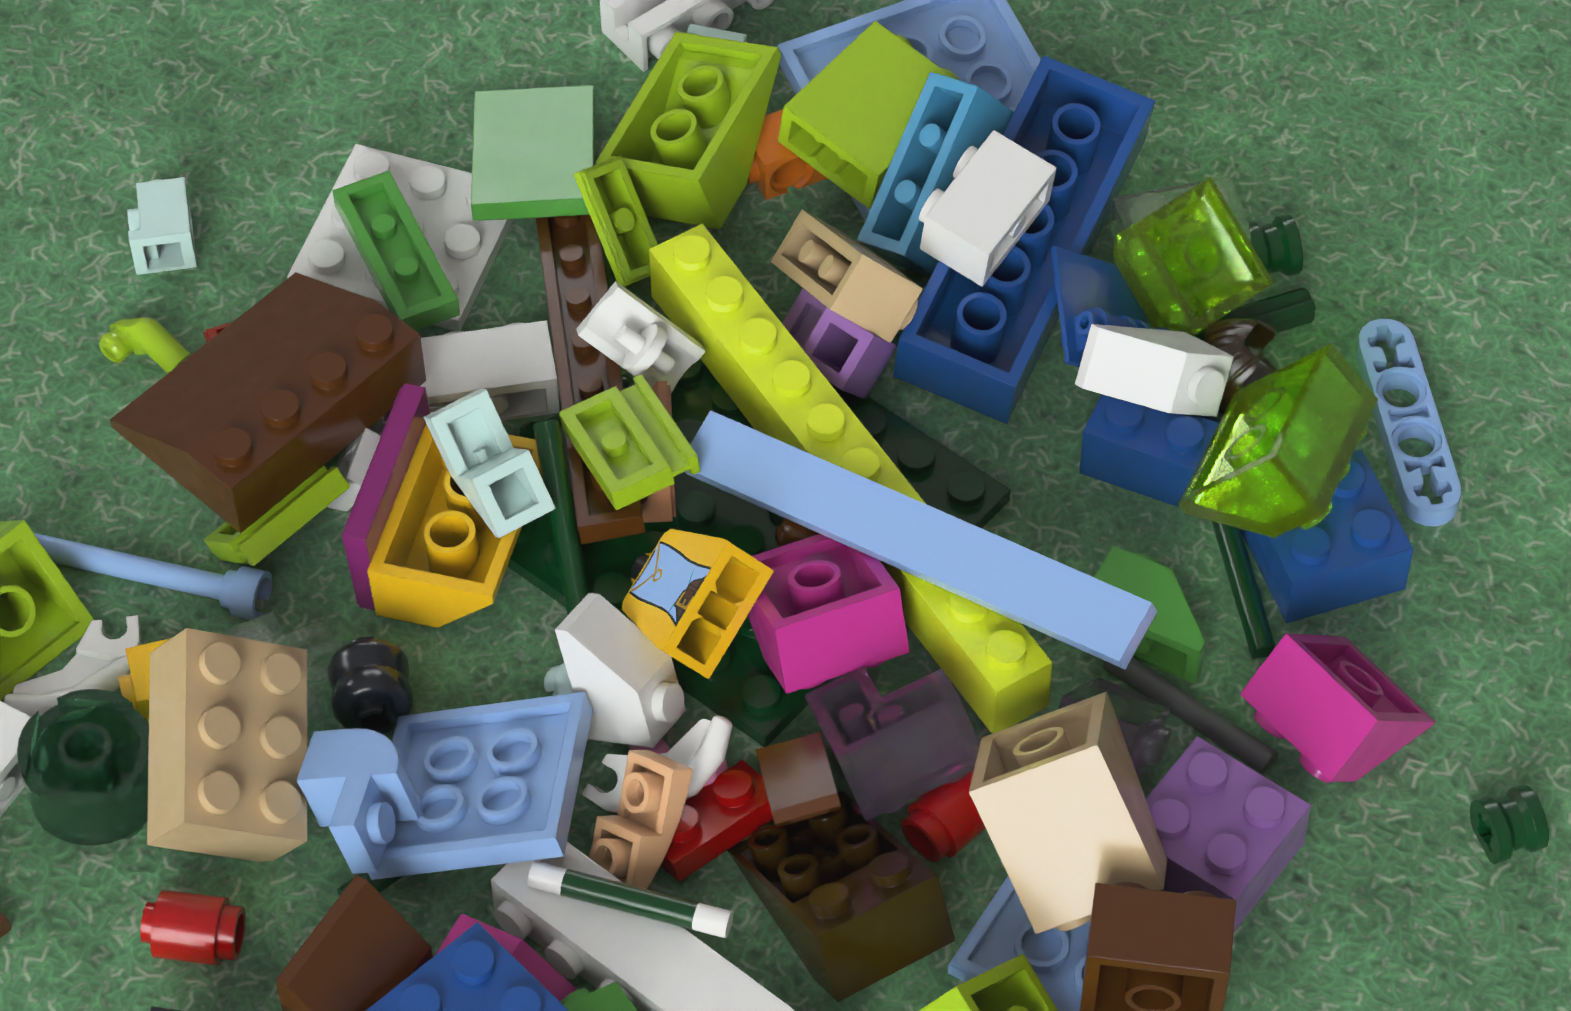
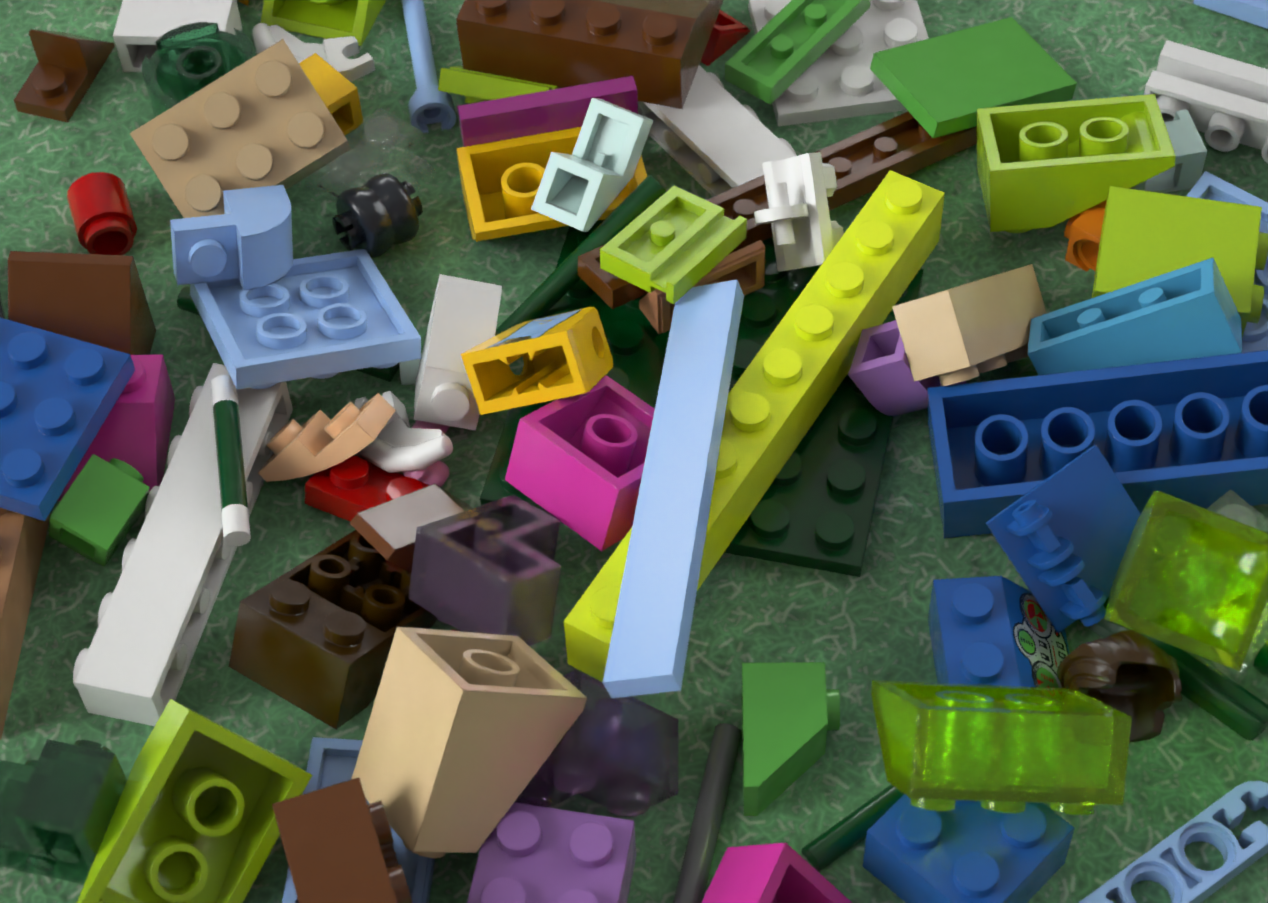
camera: 65 degrees right, 0 degrees up
(618, 218) = (934, 139): lime slope -> none
(985, 207) = (1101, 374): white brick -> none
(1155, 369) = (1030, 598): white slope -> none

